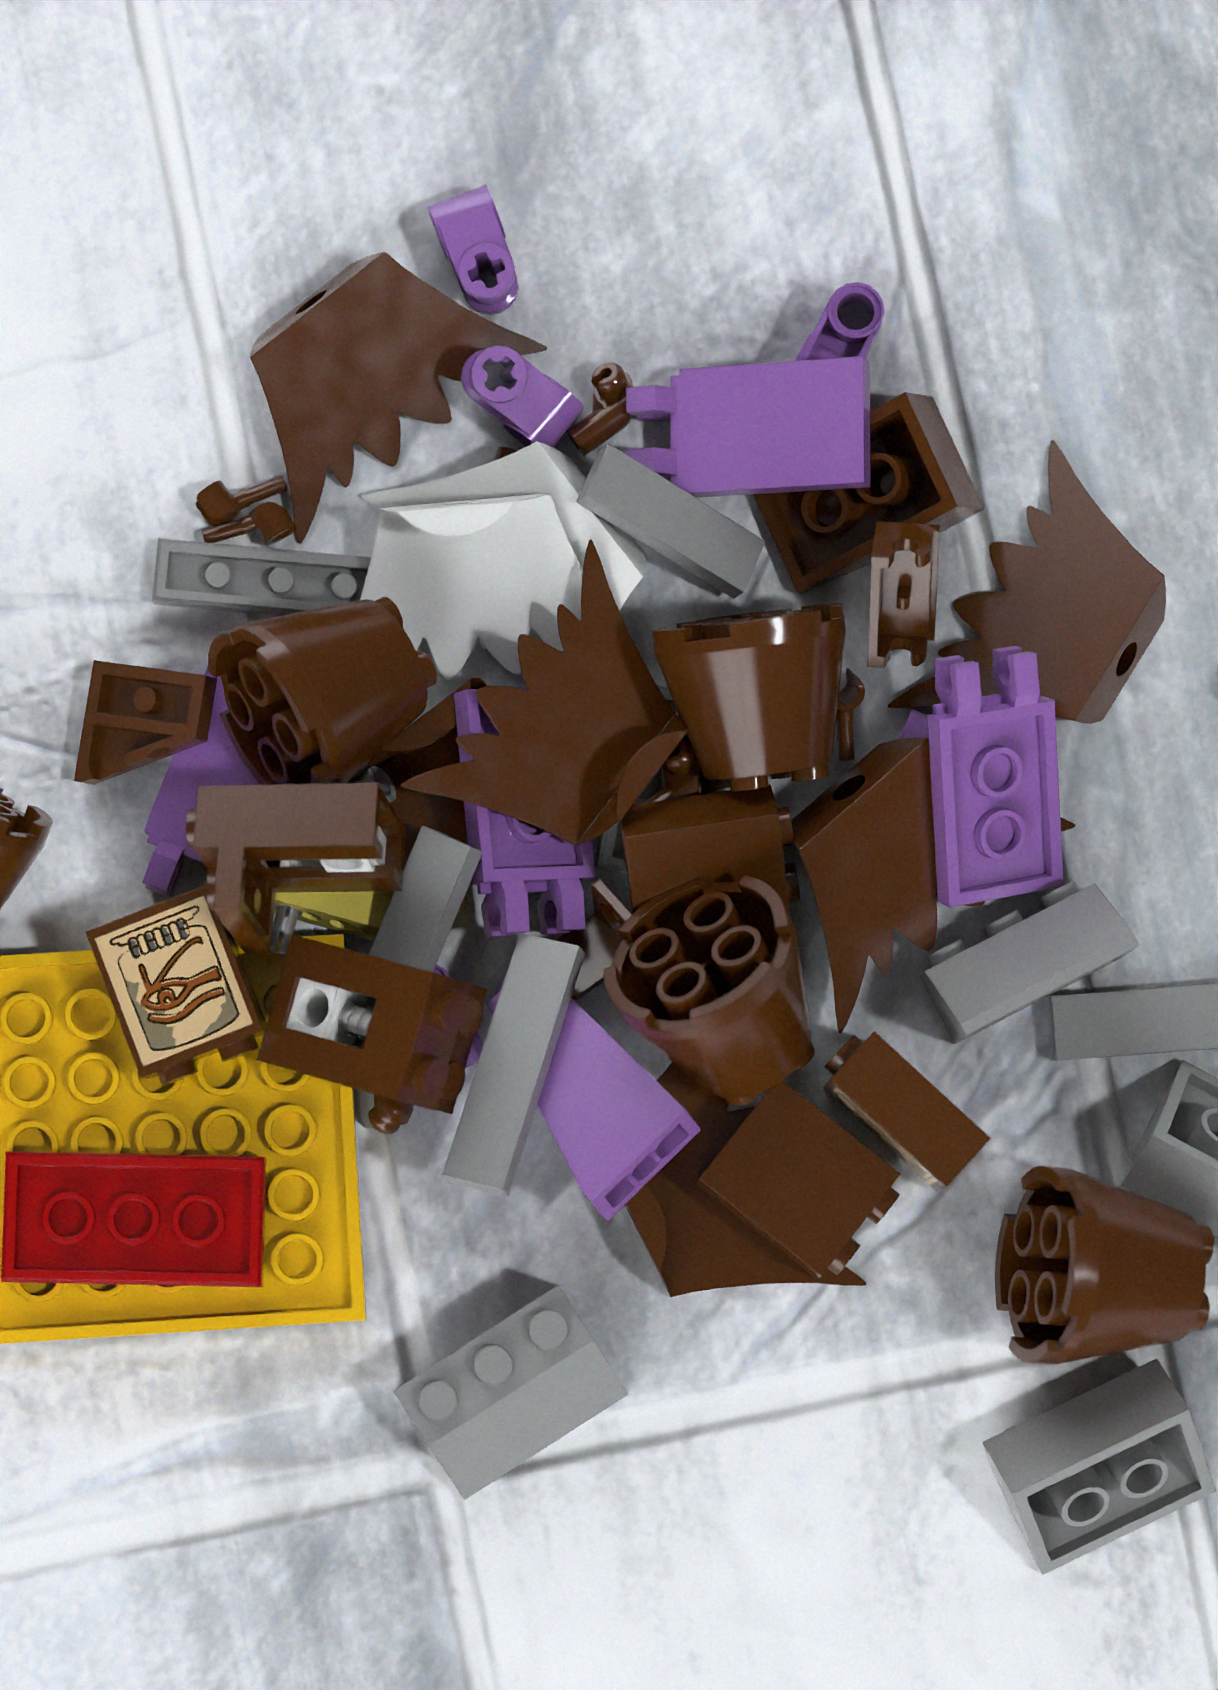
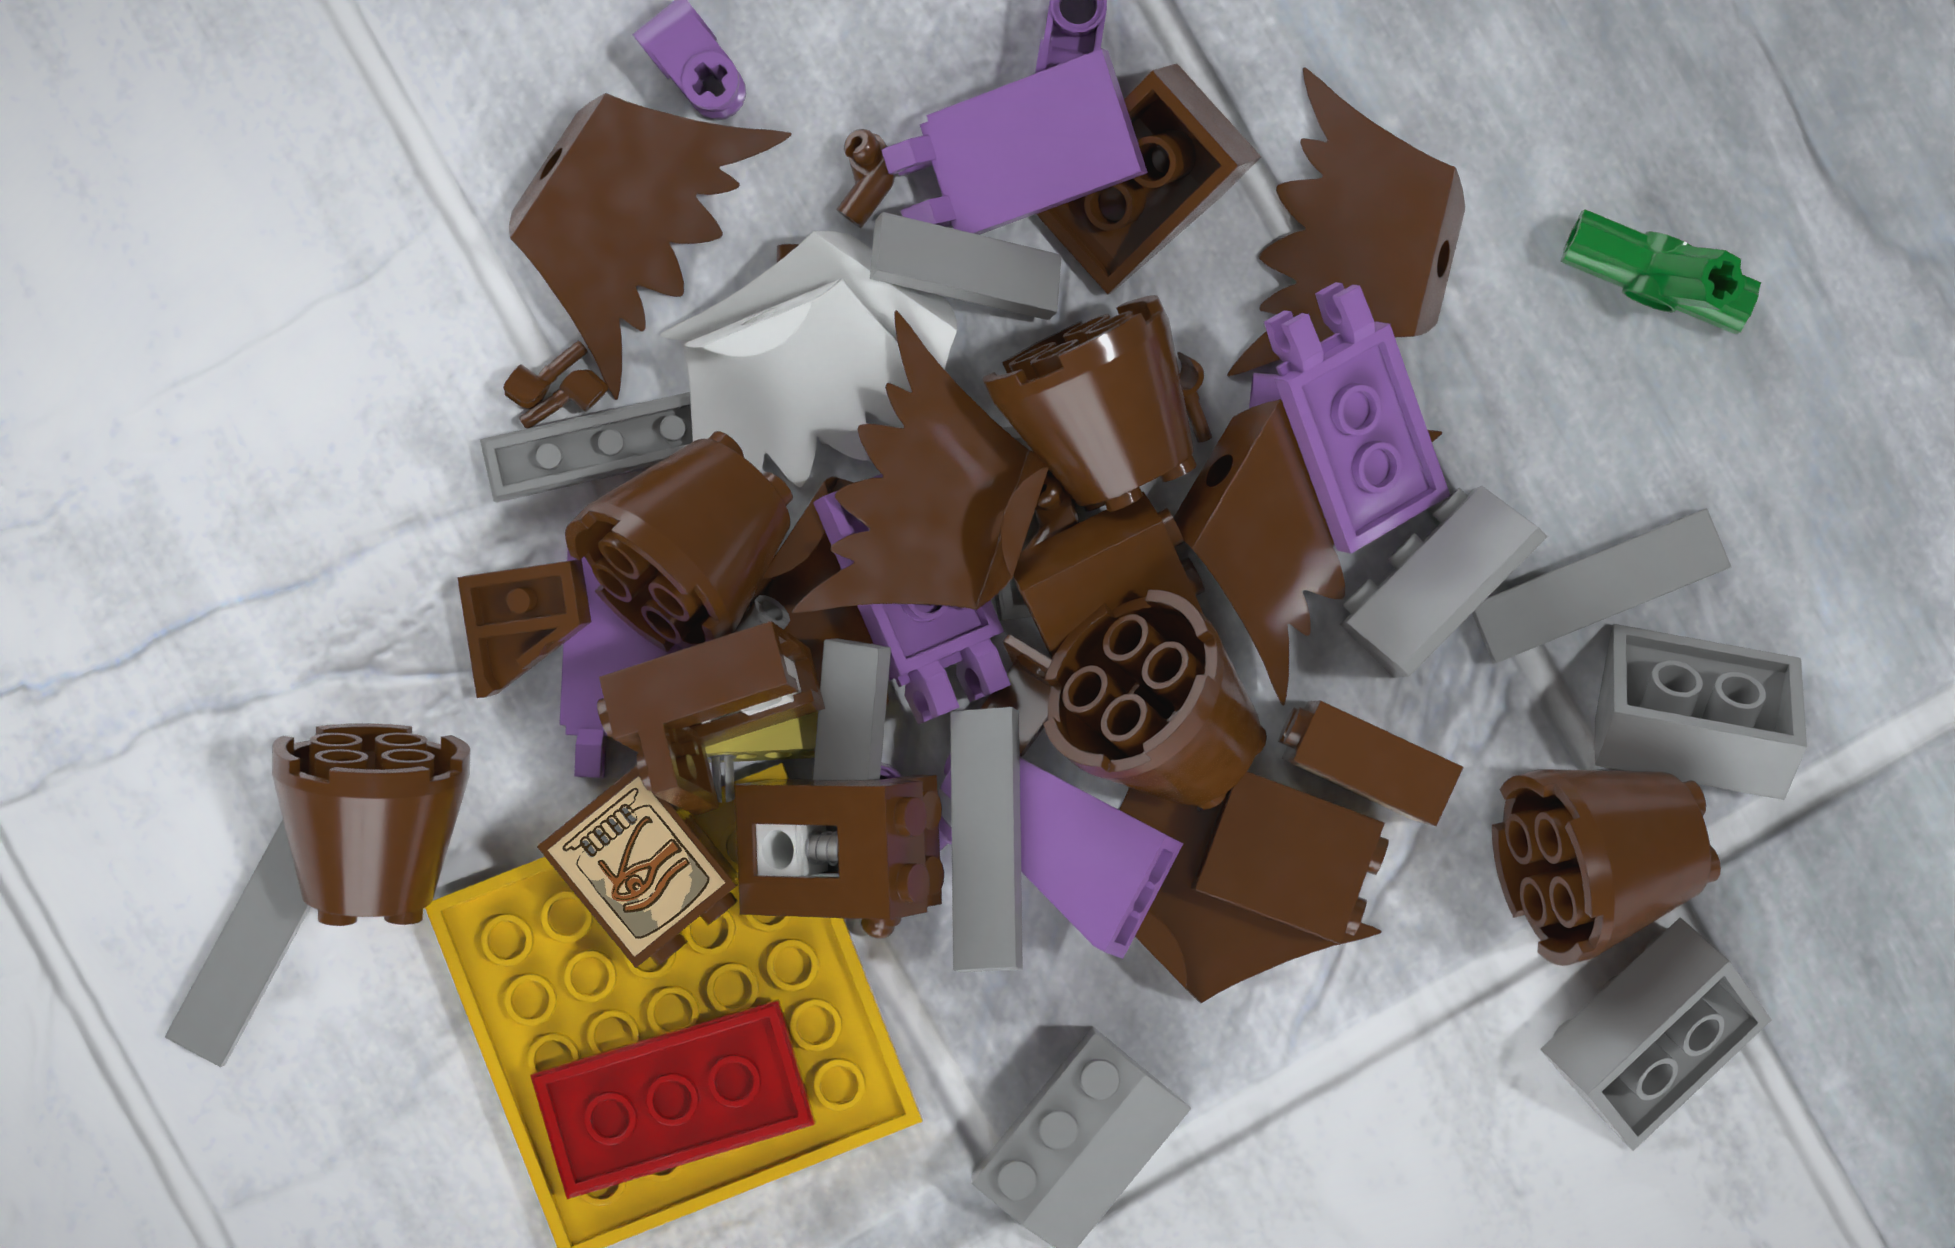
camera: 15 degrees left, 5 degrees up
(529, 404) = (792, 193): medium lavender piece -> none
(902, 591) = (1210, 262): reddish brown hinge -> none

